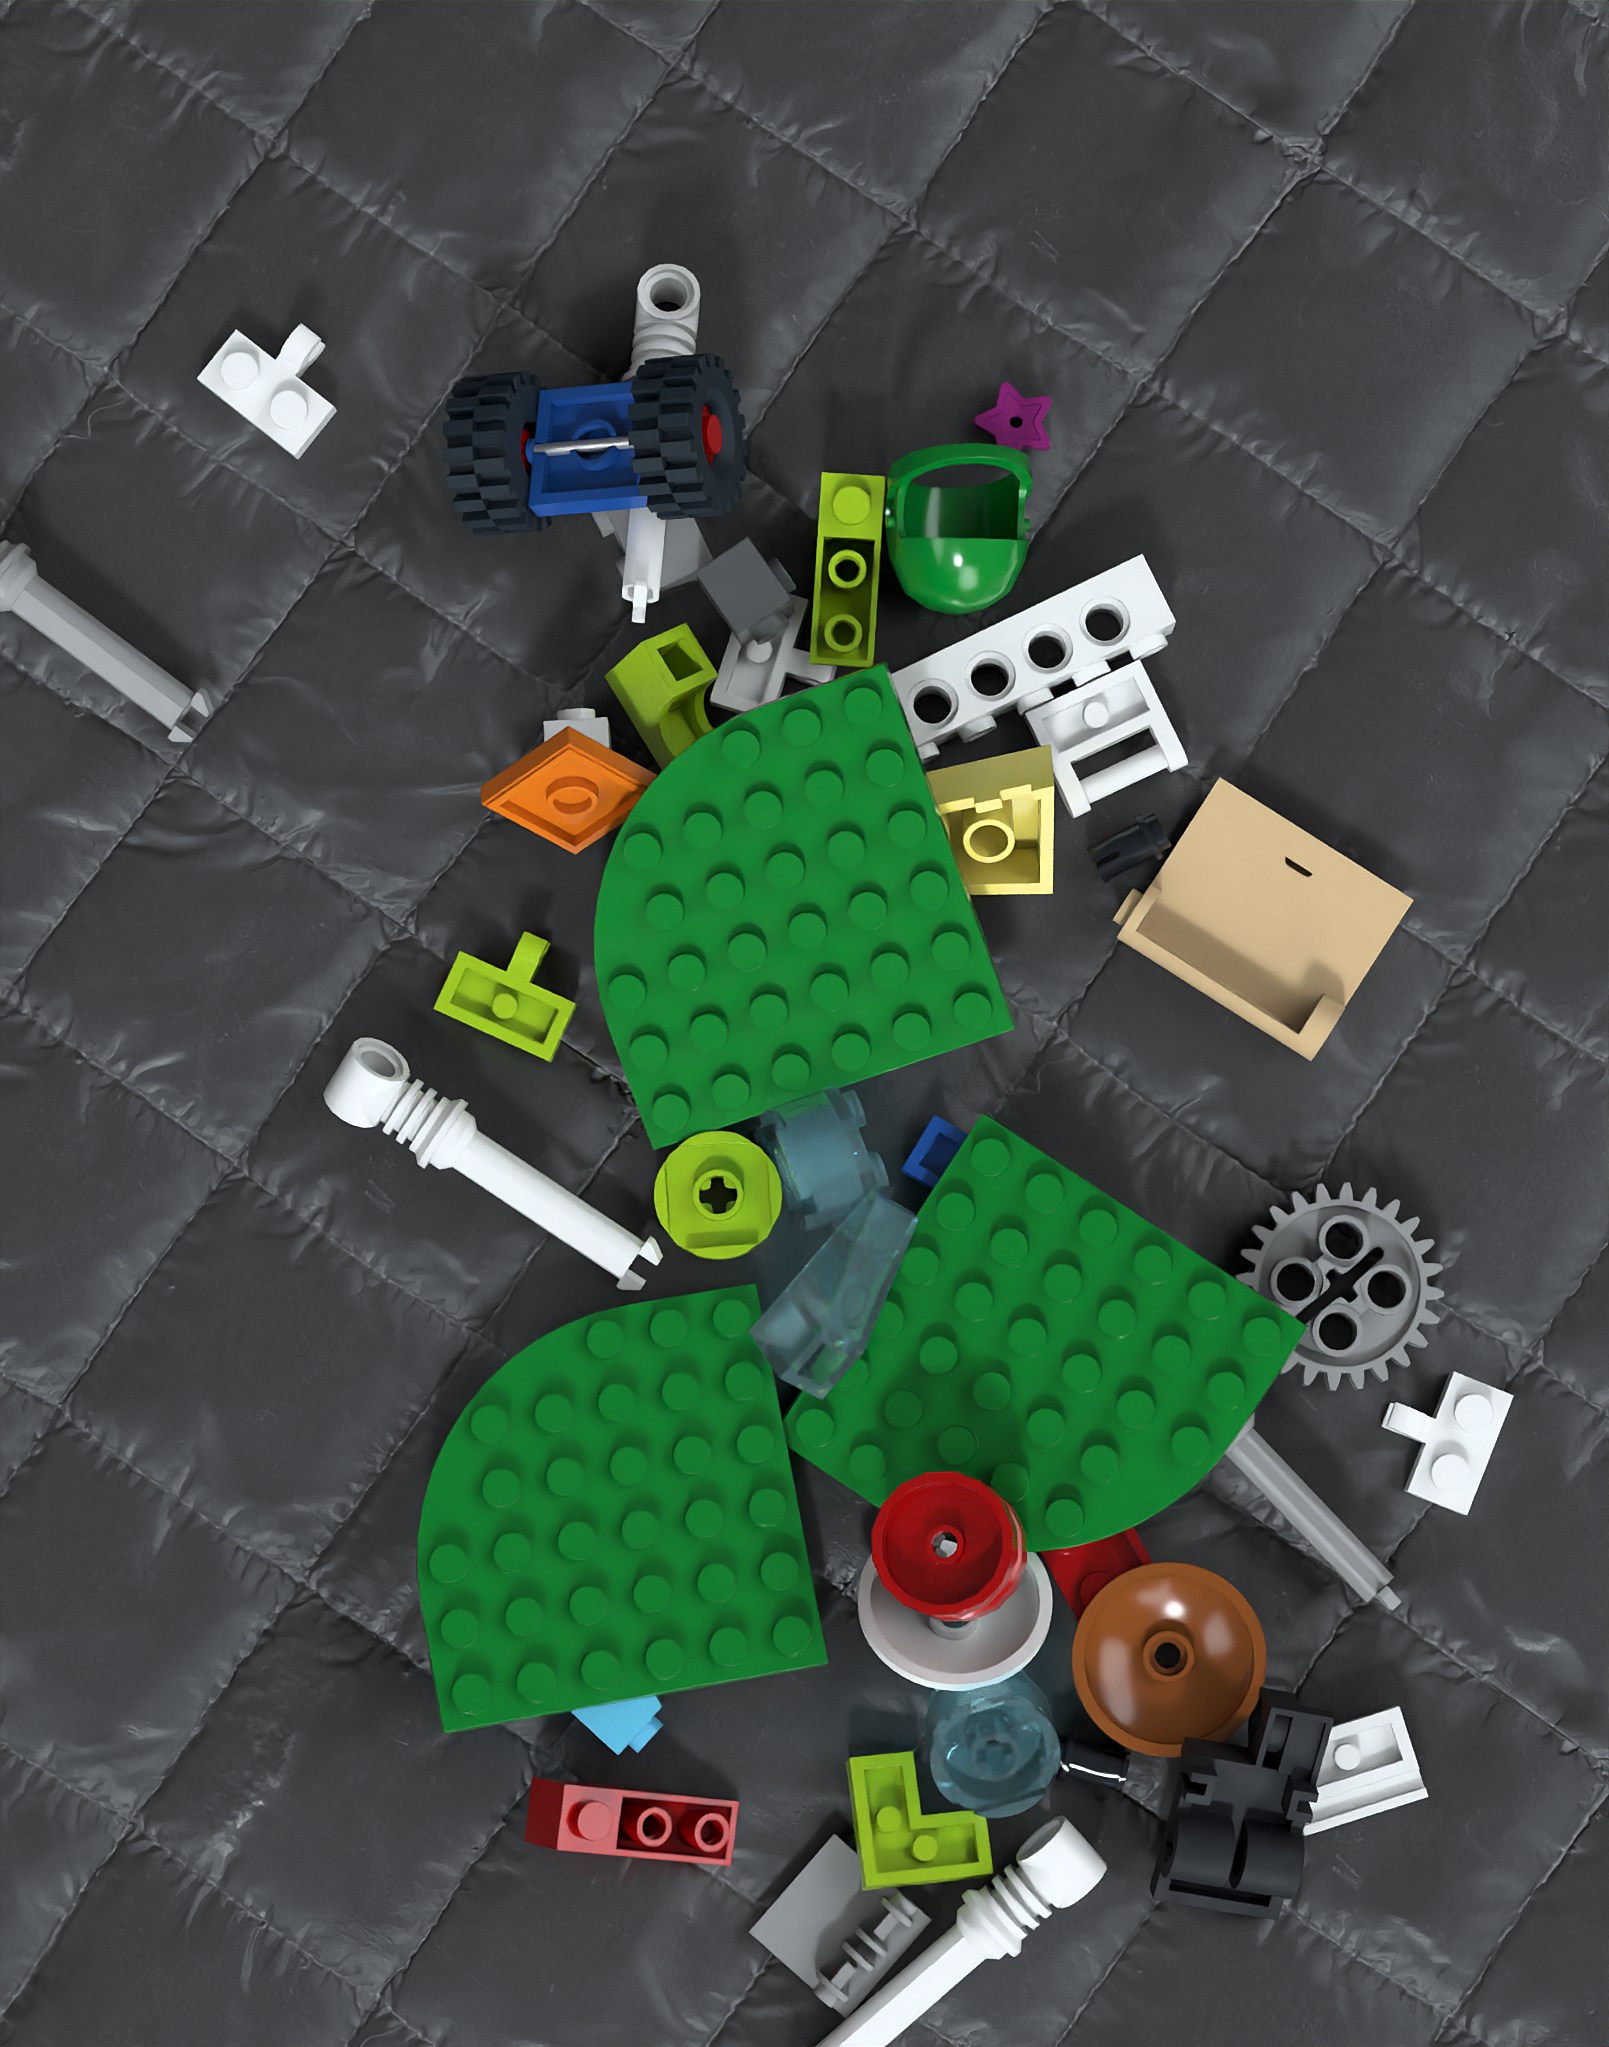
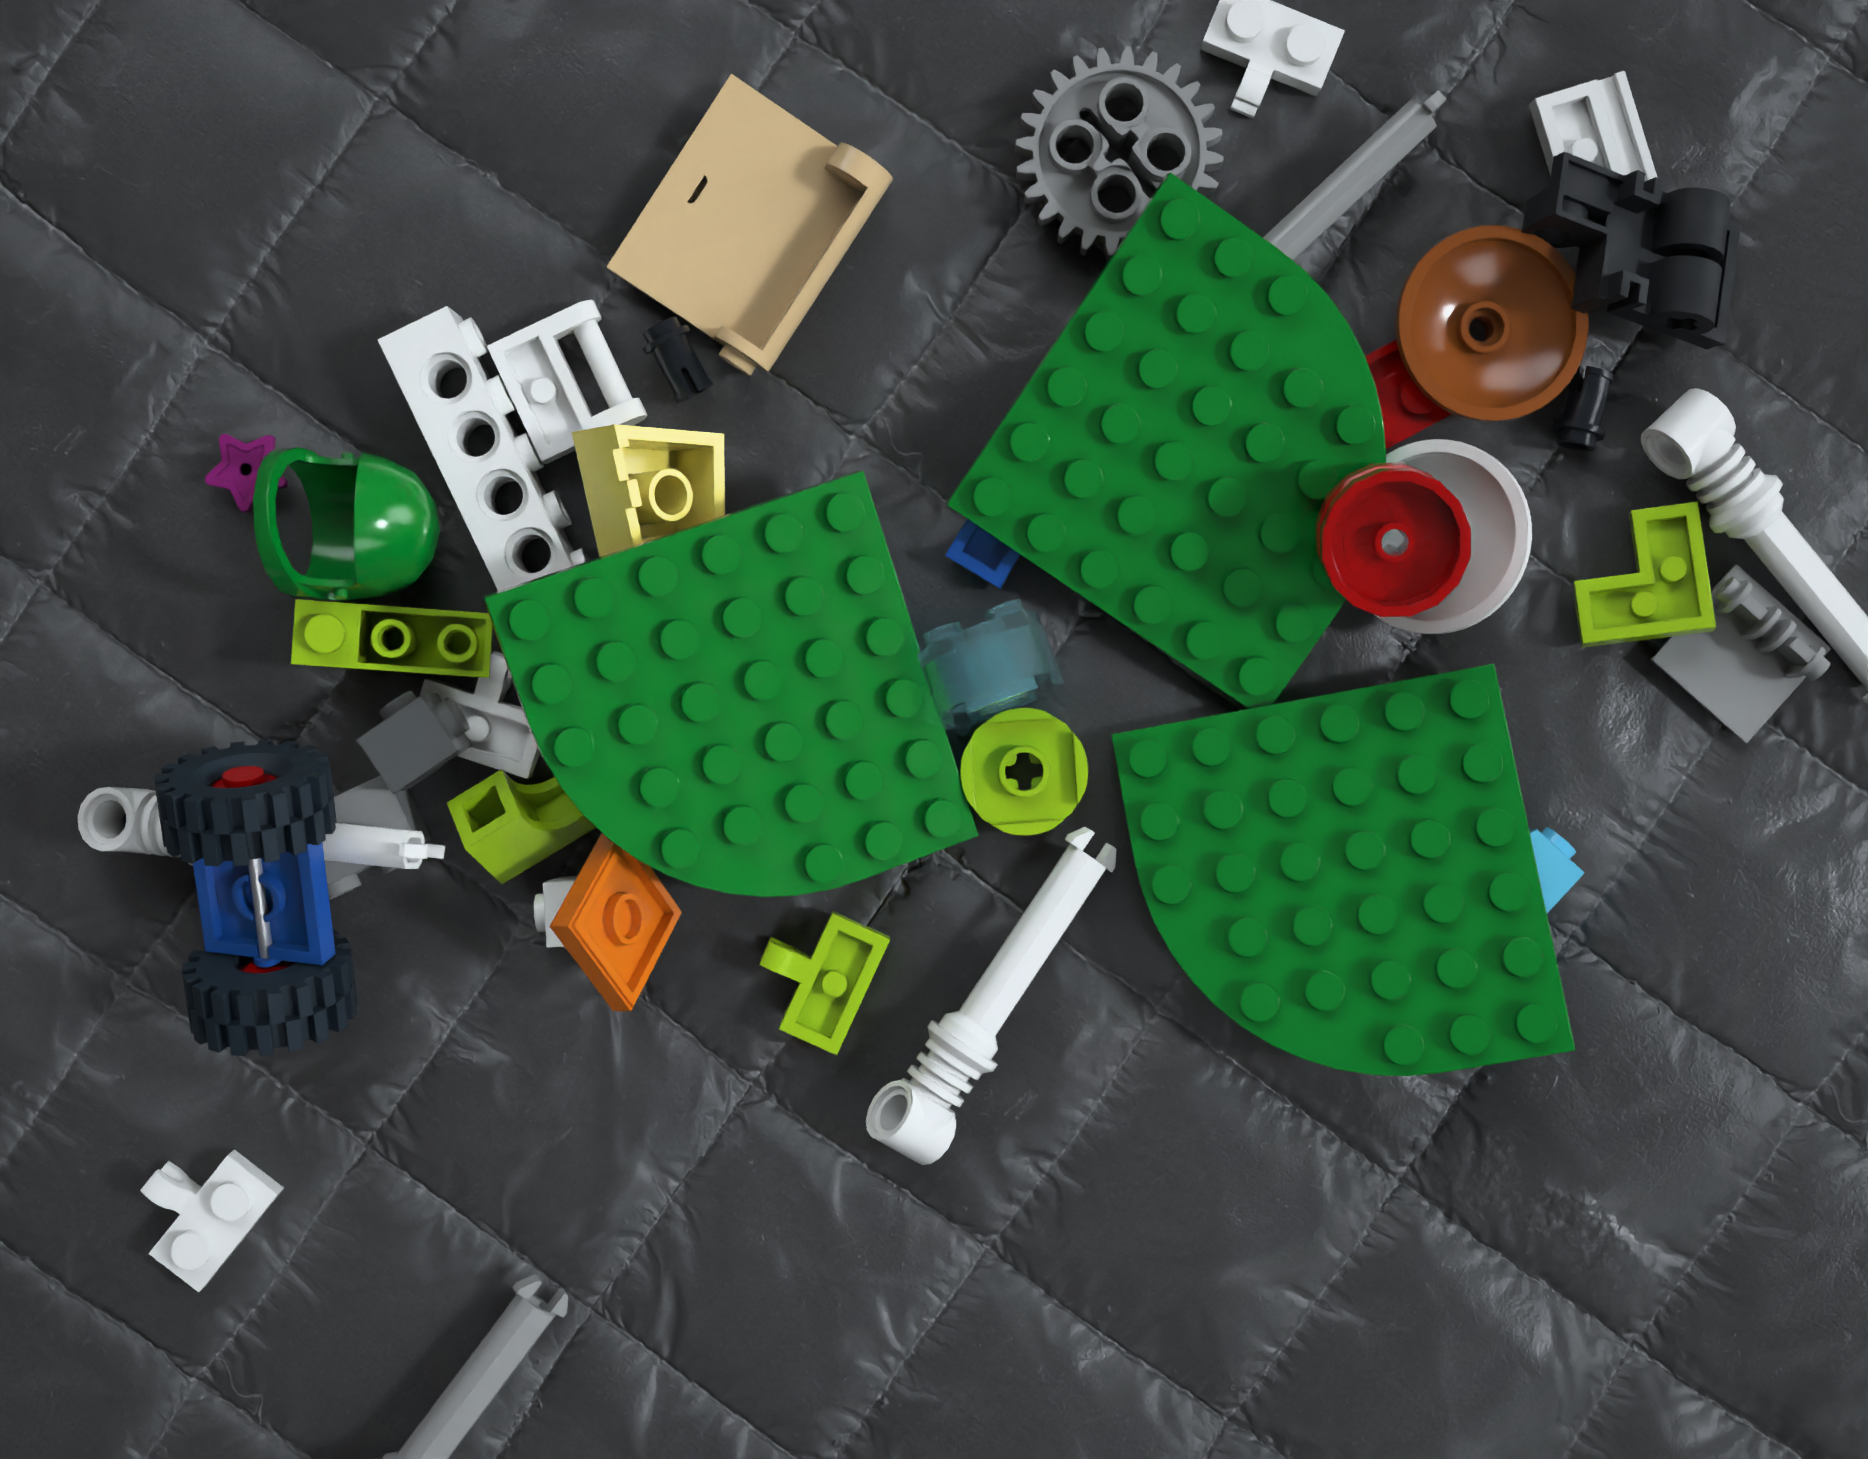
camera: 90 degrees left, 5 degrees up
(630, 1822) = (1642, 862): red slope -> none
(835, 1300) = (1137, 655): clear light blue slope -> none
(997, 1776) = (1582, 498): clear light blue brick -> none

